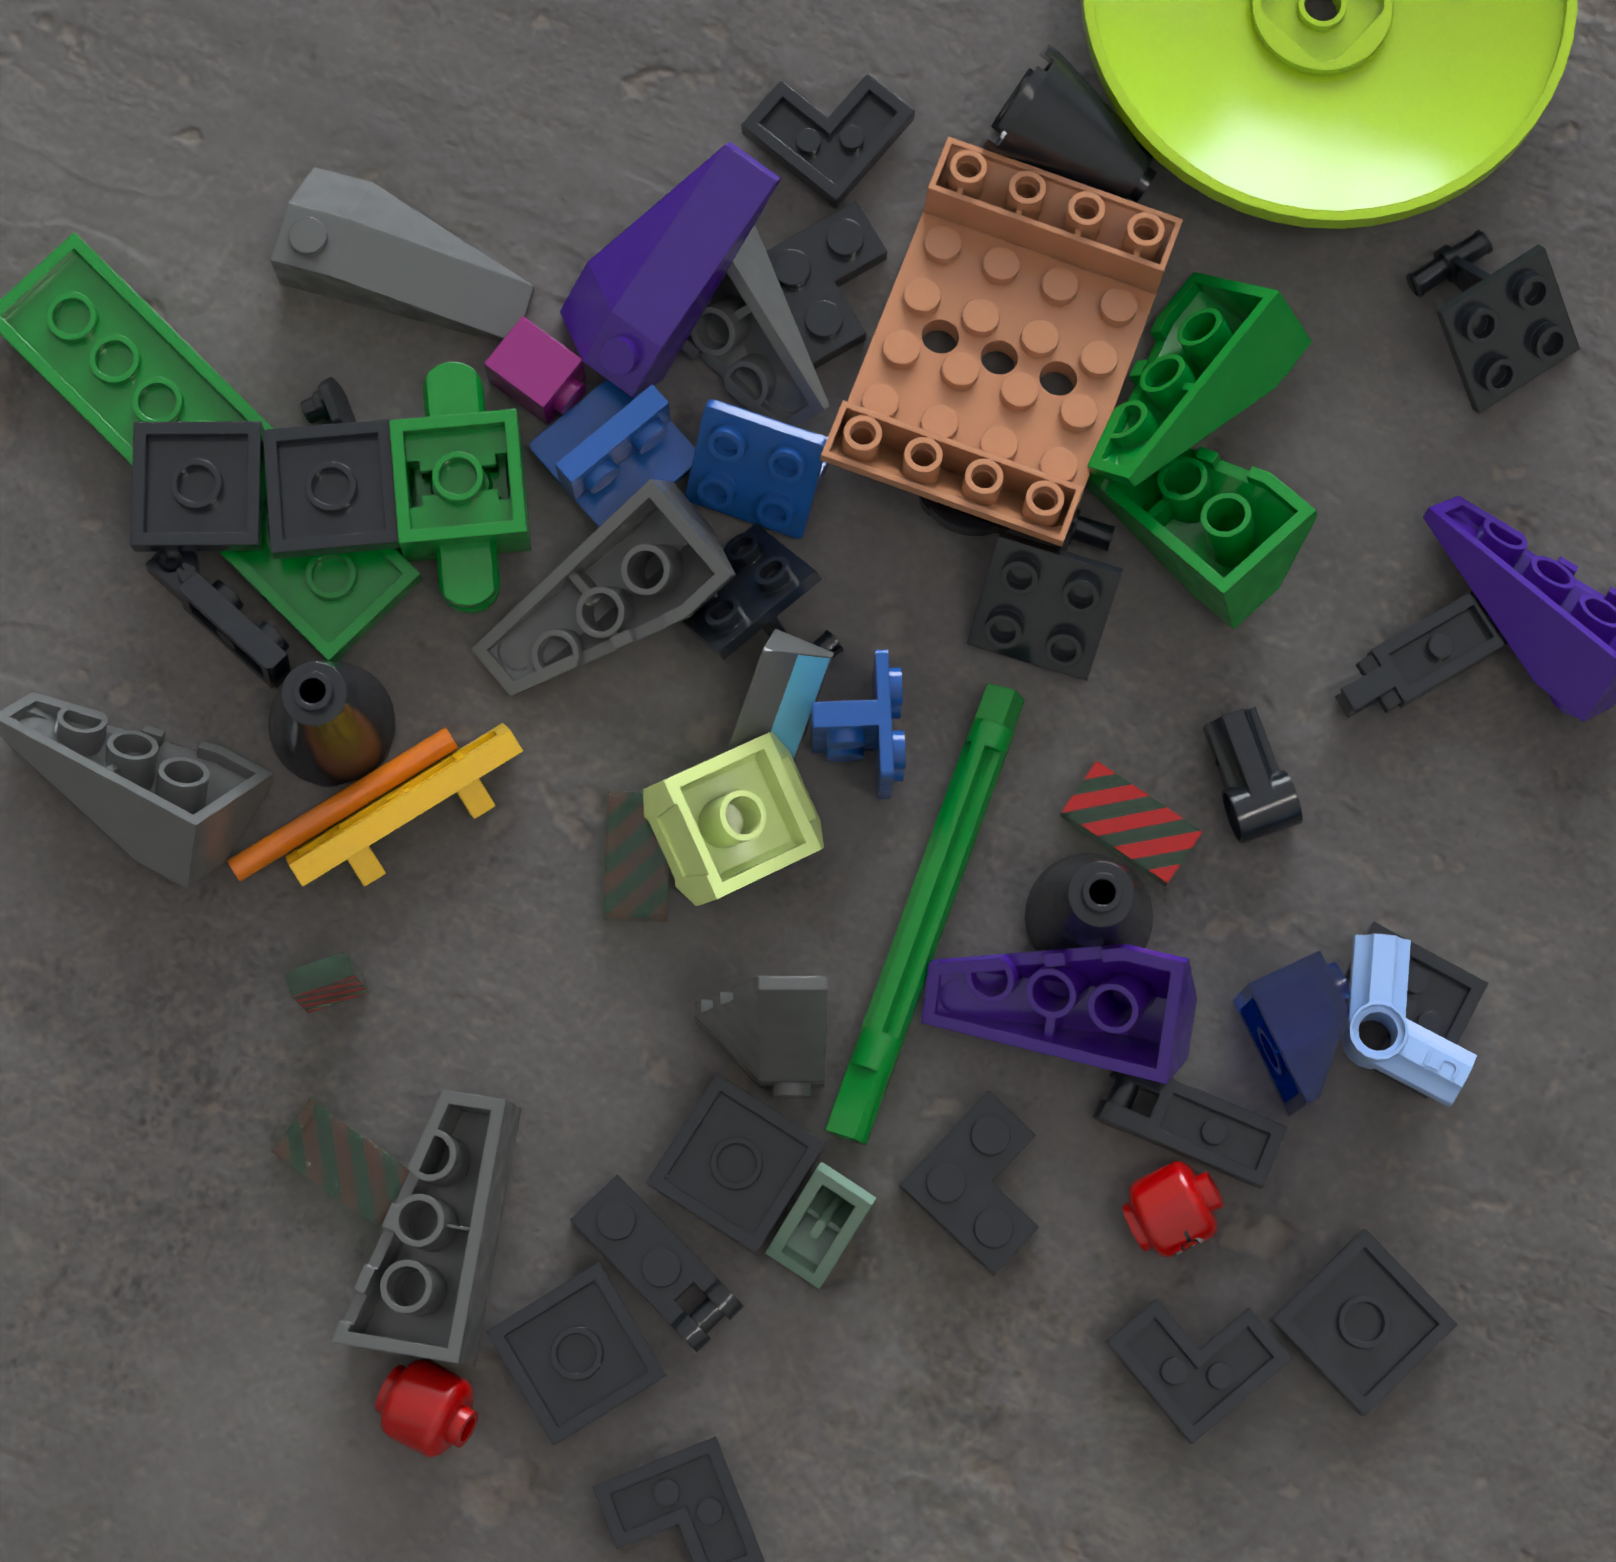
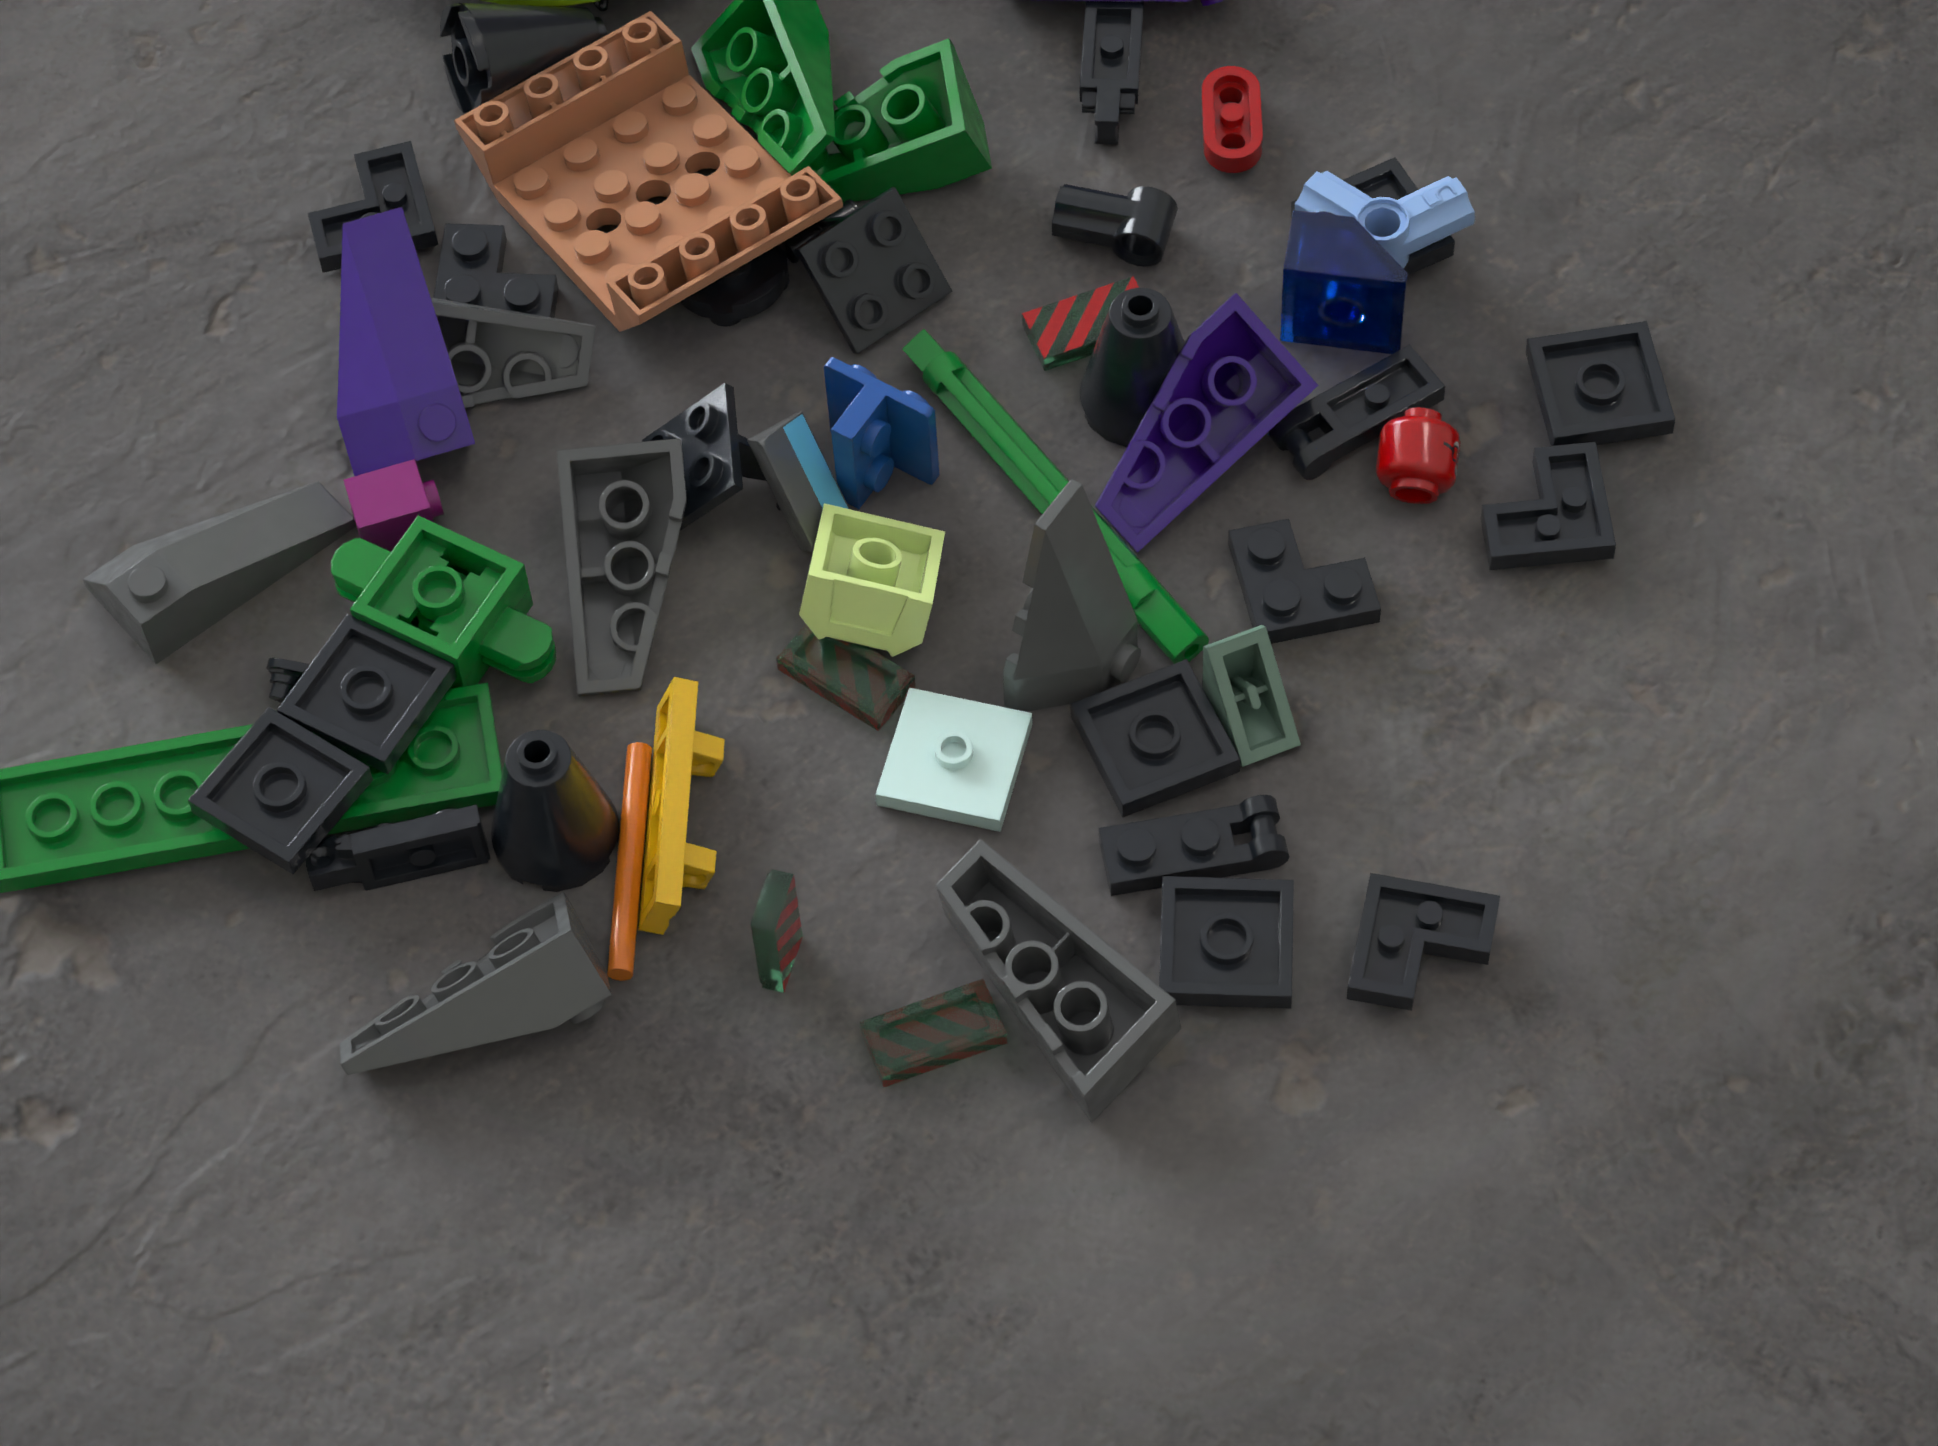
camera: 50 degrees left, 20 degrees down
(426, 1408) = (1191, 1075): red head -> none
(611, 1006) = (954, 759): none -> light aqua plate
(612, 448) = (504, 490): blue bracket -> none
(756, 468) = (602, 389): blue bracket -> none
(1434, 805) = (1232, 123): none -> red plate

